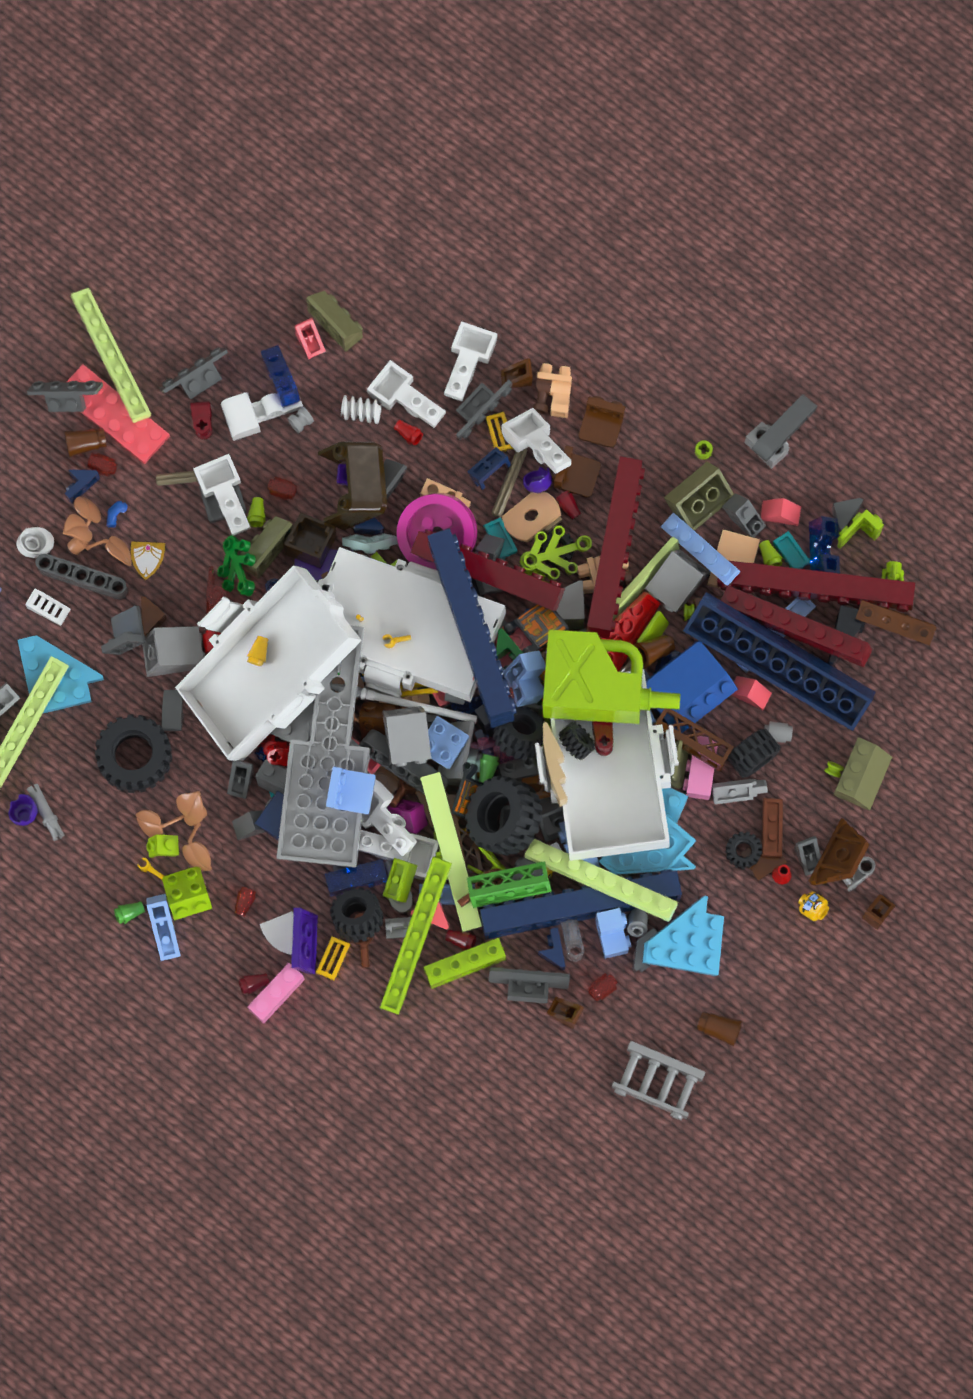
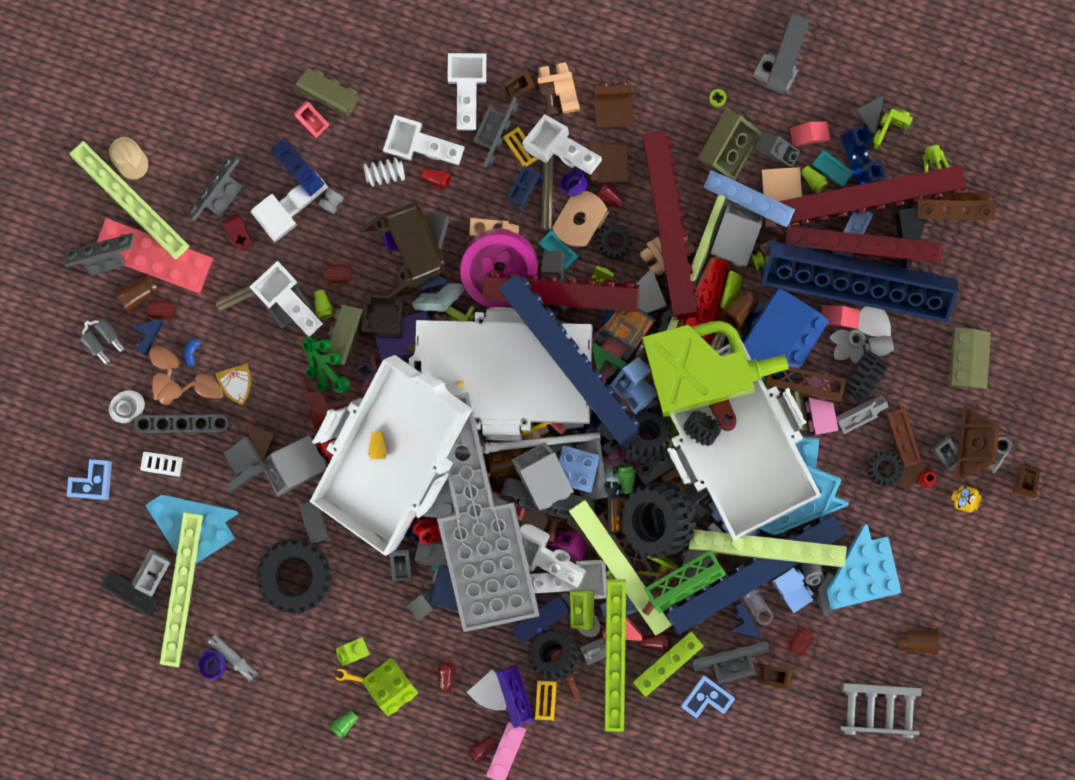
camera: 15 degrees left, 10 degrees up
(43, 469) = (106, 332): none -> dark grey piece
(125, 318) = (128, 158): none -> tan piece
(163, 927) = (380, 726): light blue slope -> none
(193, 813) = (369, 613): nougat plant -> none
(350, 790) = (511, 549): light blue bracket -> none
(395, 640) = (501, 393): yellow hand -> none
(491, 1003) = (706, 692): none -> light blue brick
(551, 554) = (612, 250): lime plant -> none
(553, 758) = (686, 454): tan slope -> none
(746, 723) = (845, 345): none -> light grey plate
(782, 708) = (874, 322): none -> white sticker
(834, 769) = (942, 363): lime bush -> none

